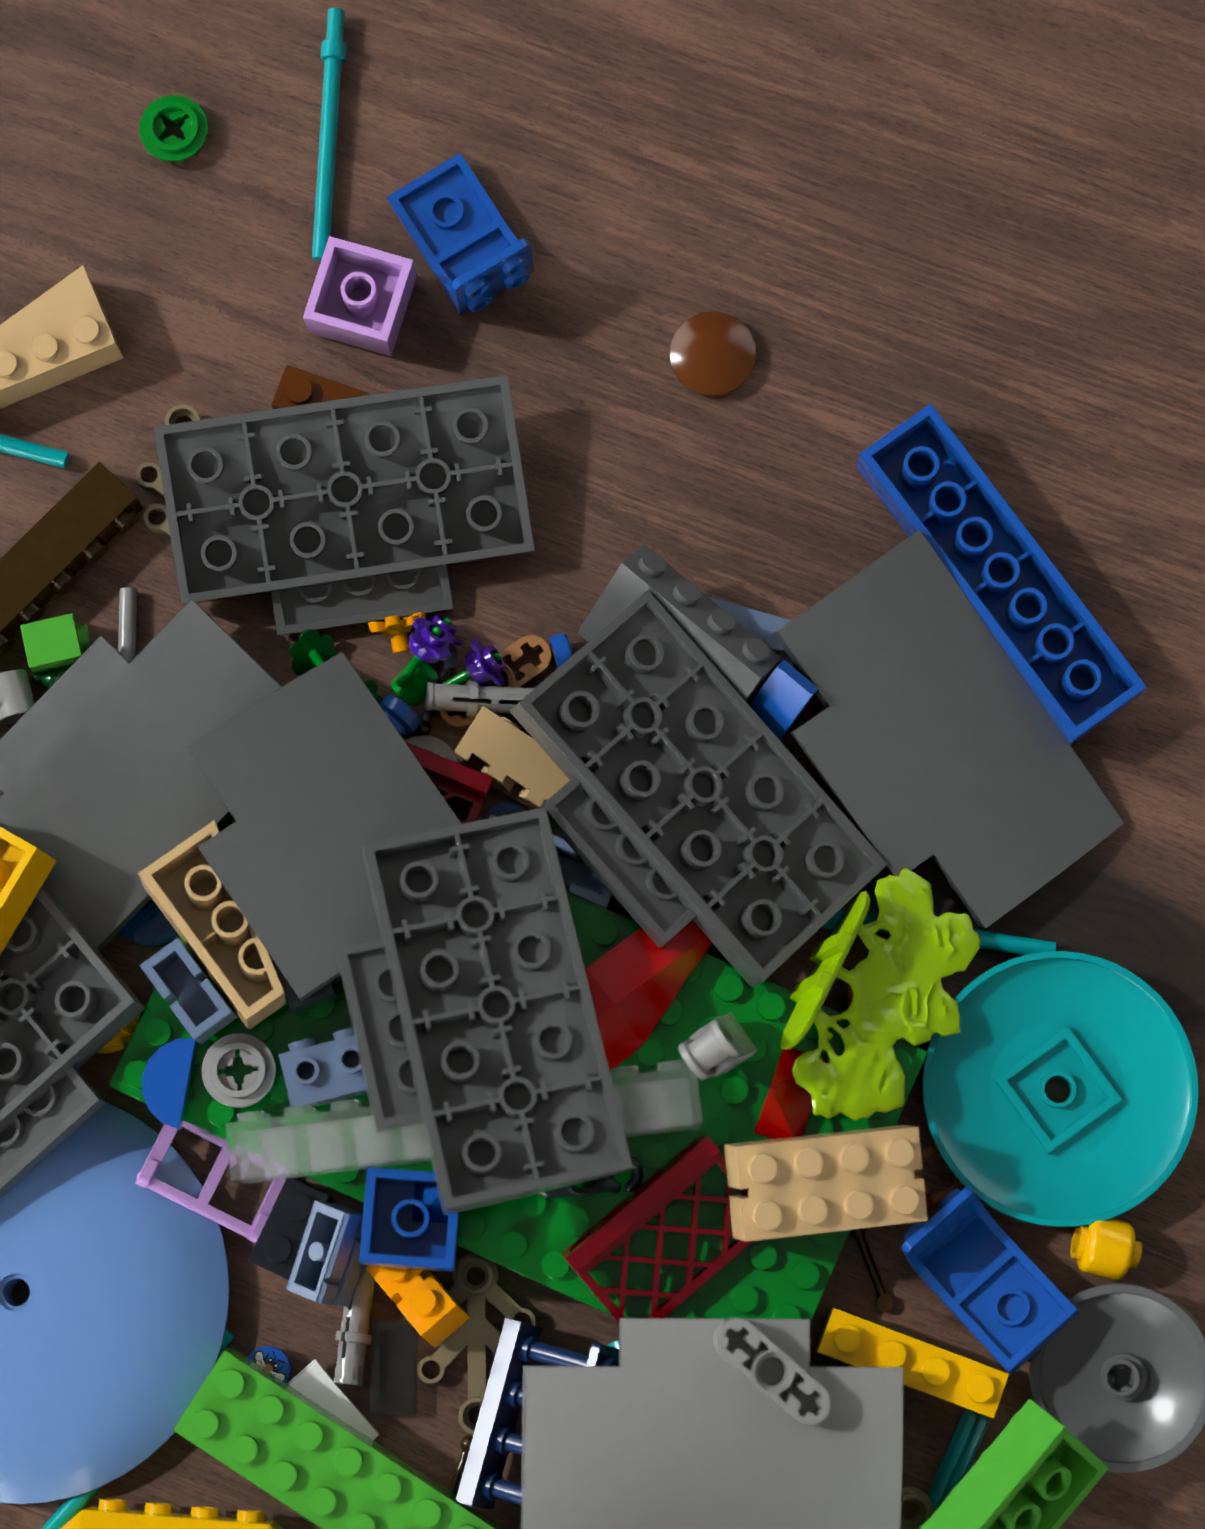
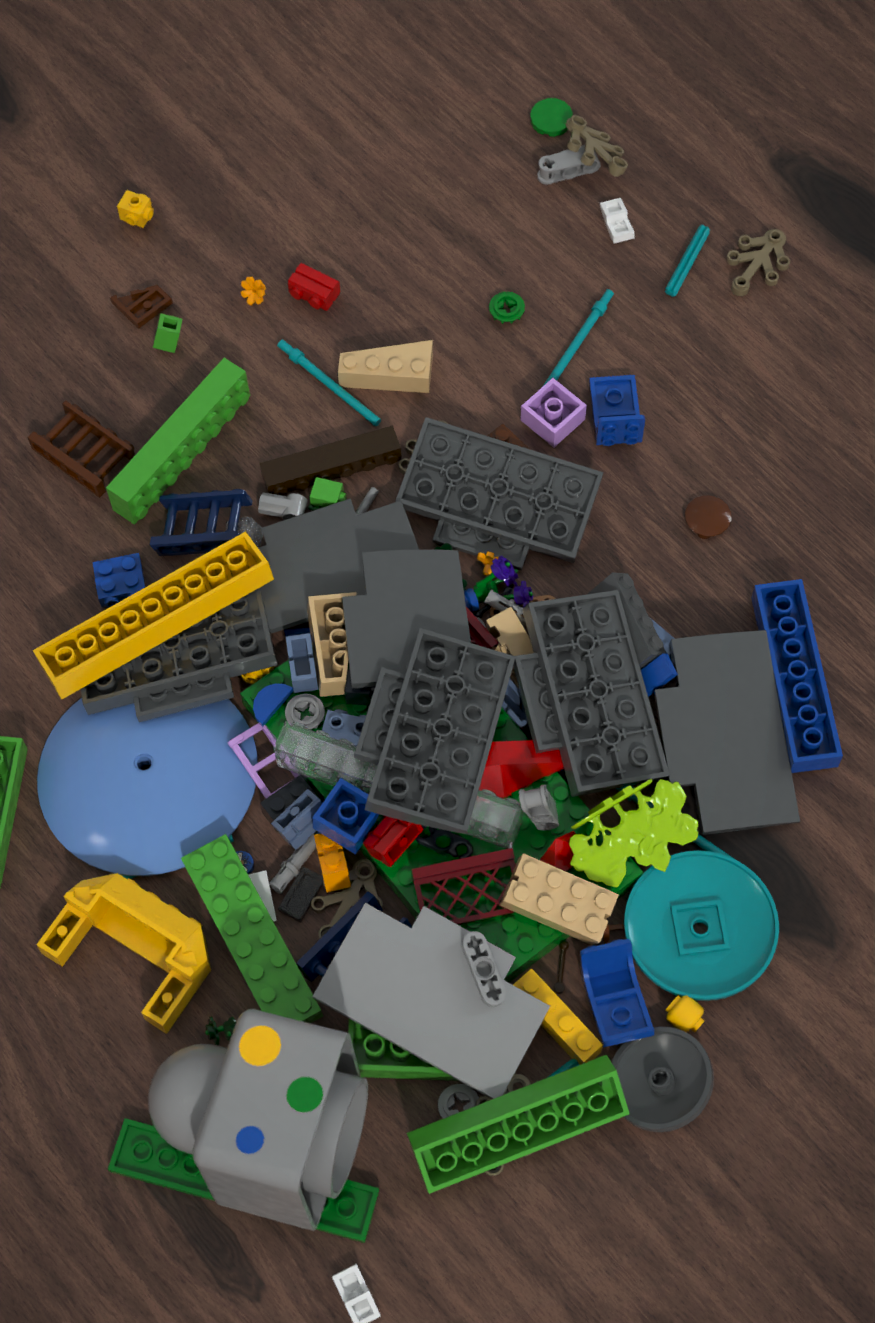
camera: 25 degrees right, 15 degrees down
(500, 1230) = (391, 839): none -> red brick

